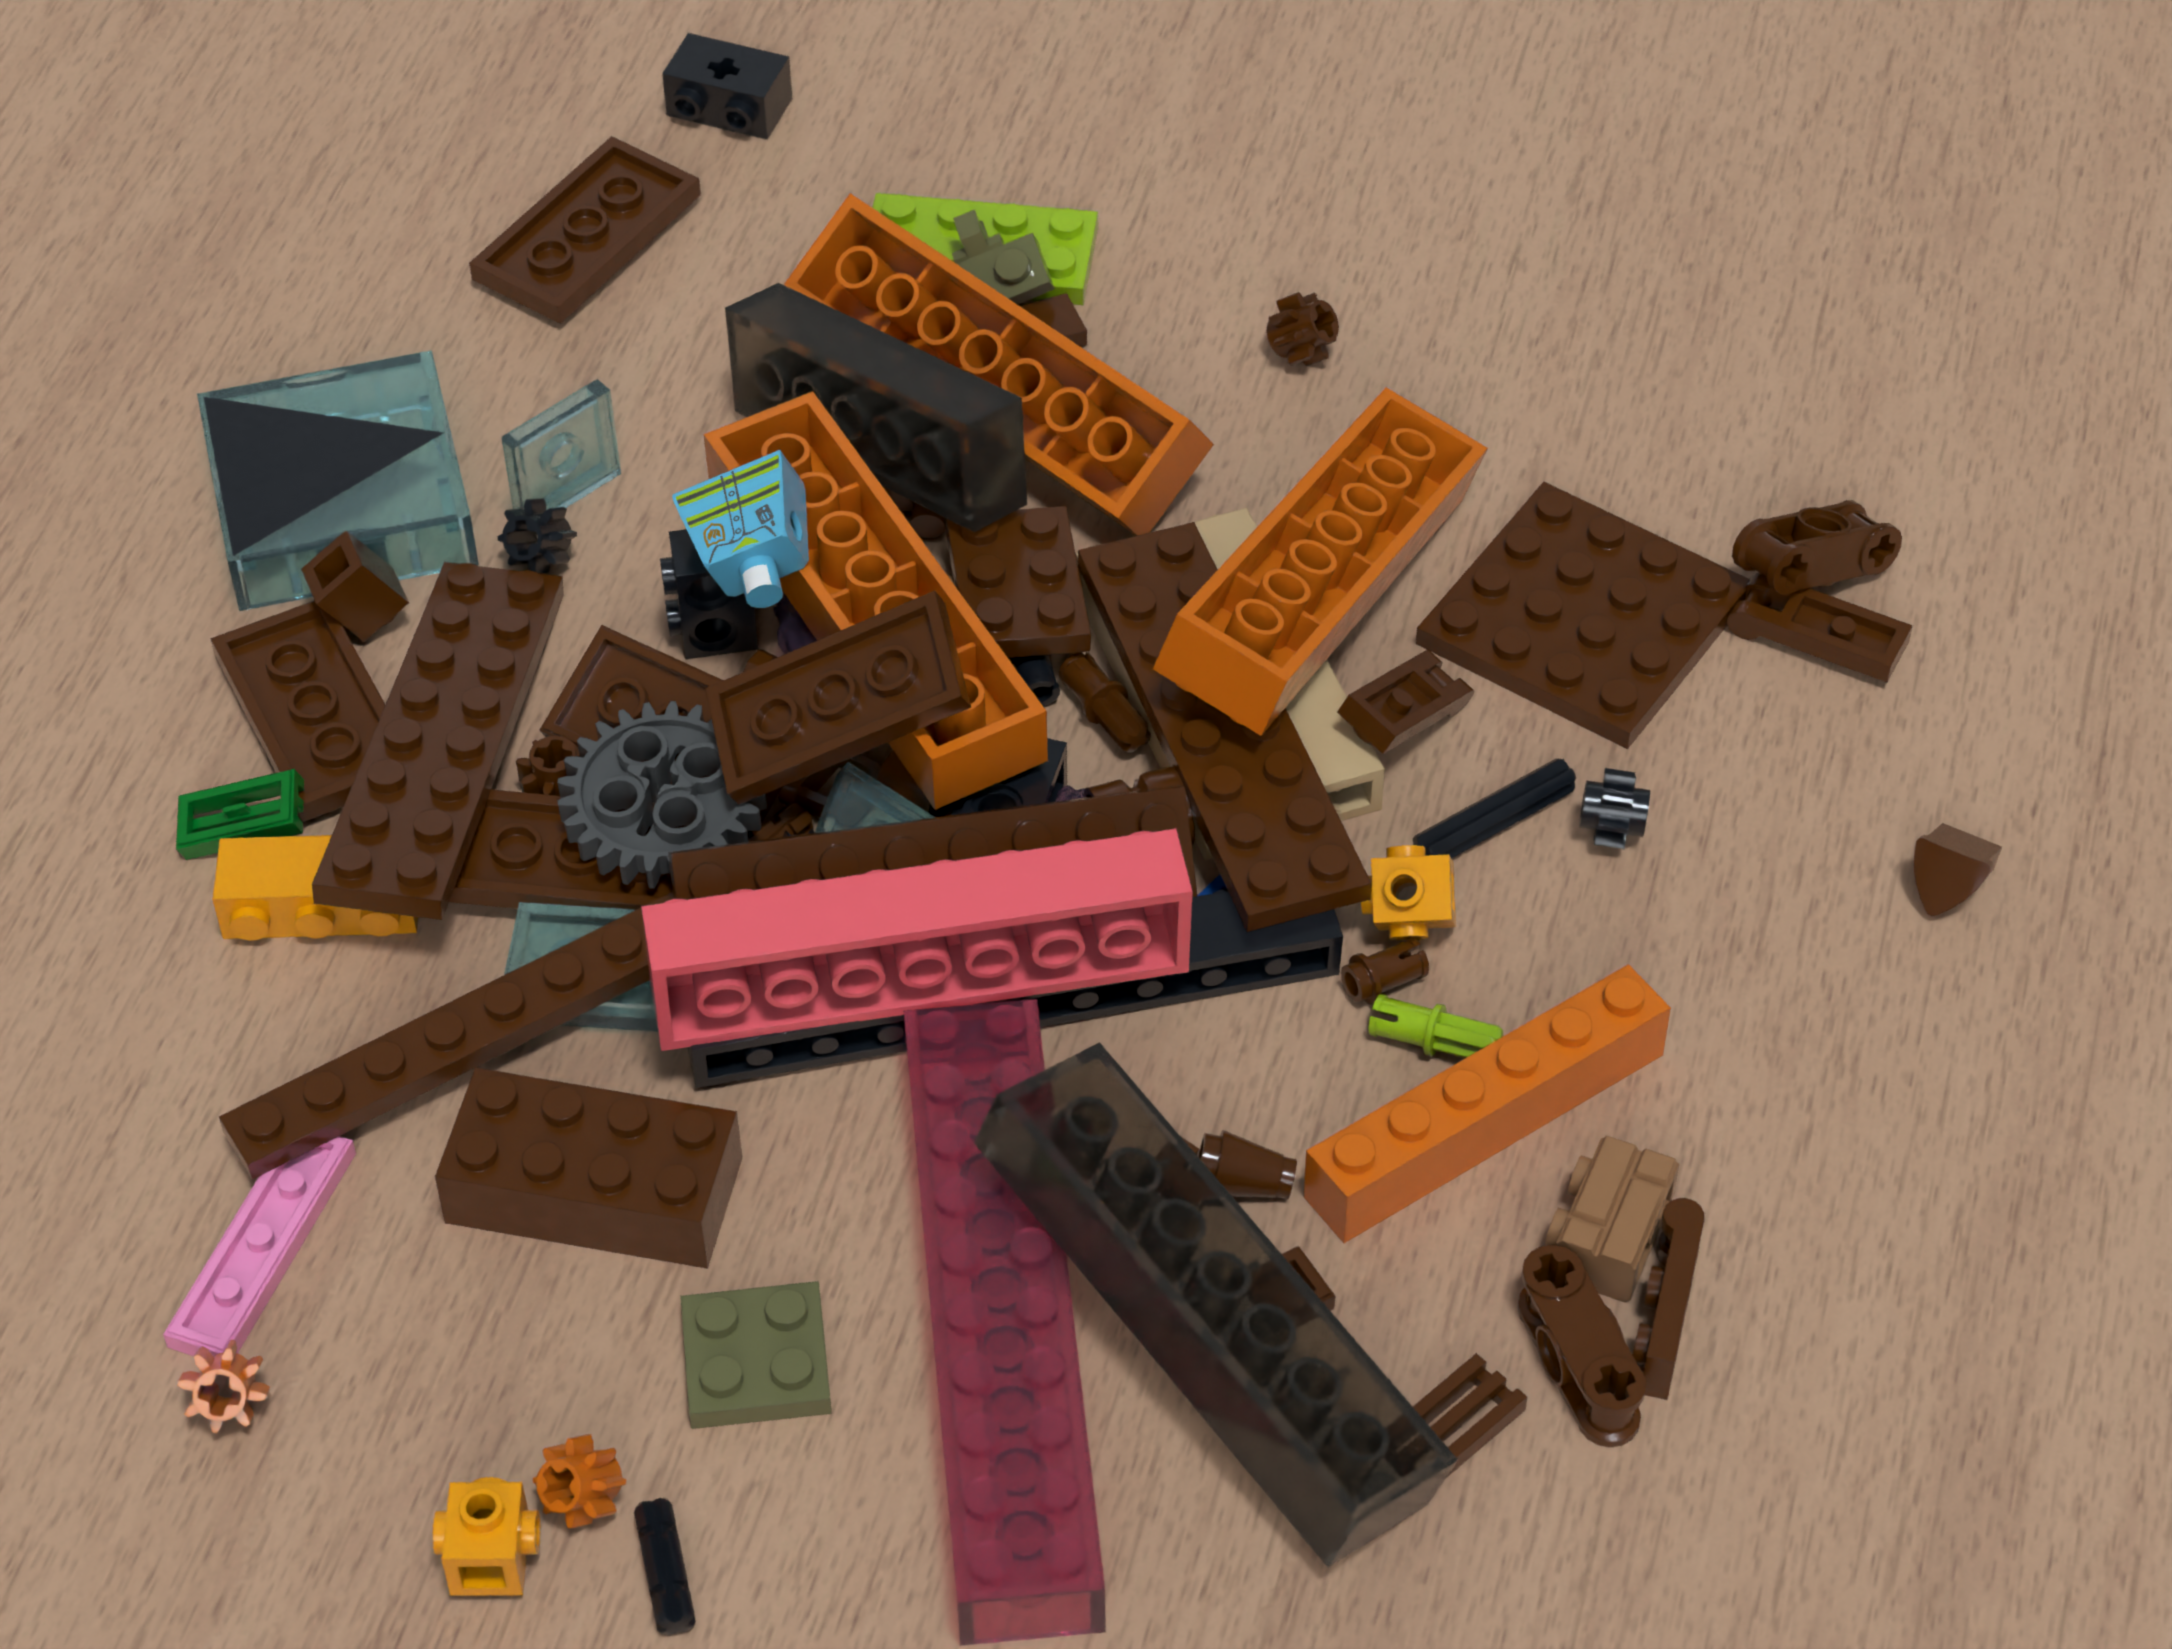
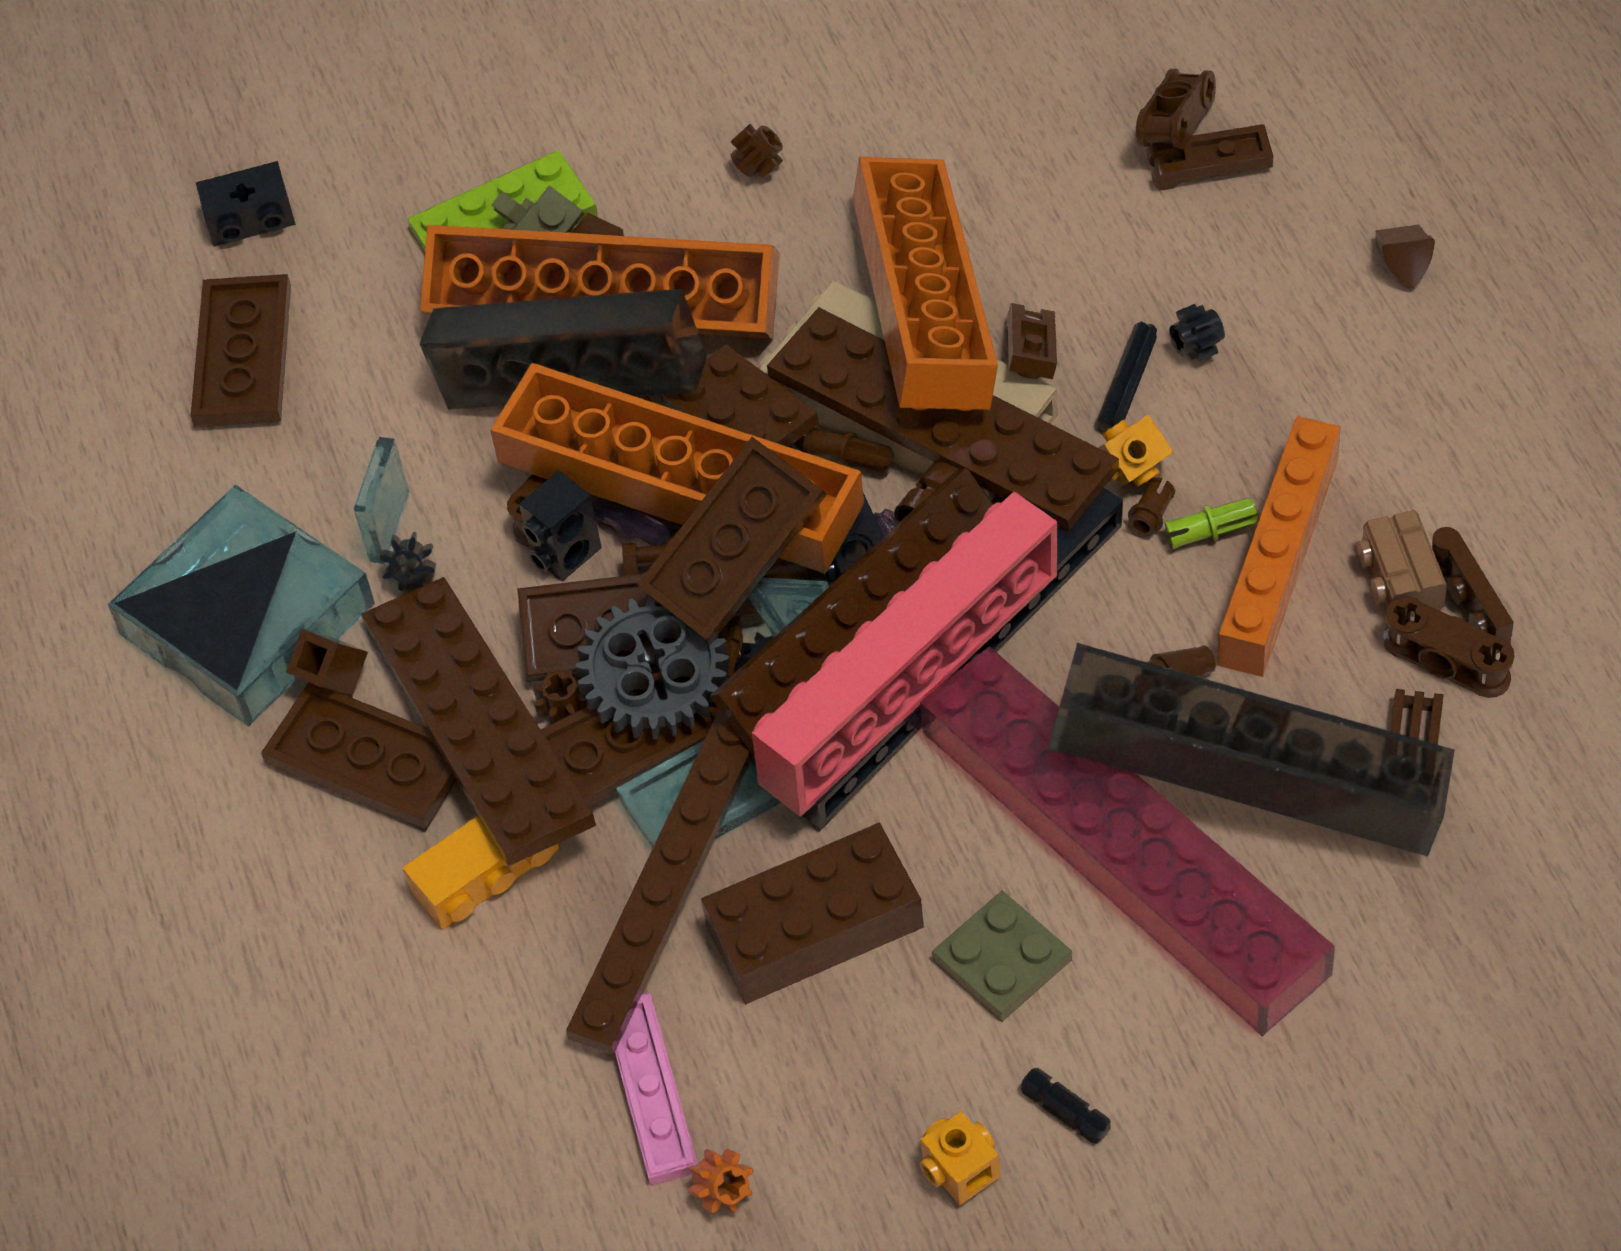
camera: 30 degrees left, 5 degrees up
(268, 819) = (400, 858): green tile -> none
(579, 1481) = (976, 1105): orange gear -> none
(749, 527) = (583, 471): medium azure torso -> none
(1583, 614) = (1070, 228): reddish brown plate -> none

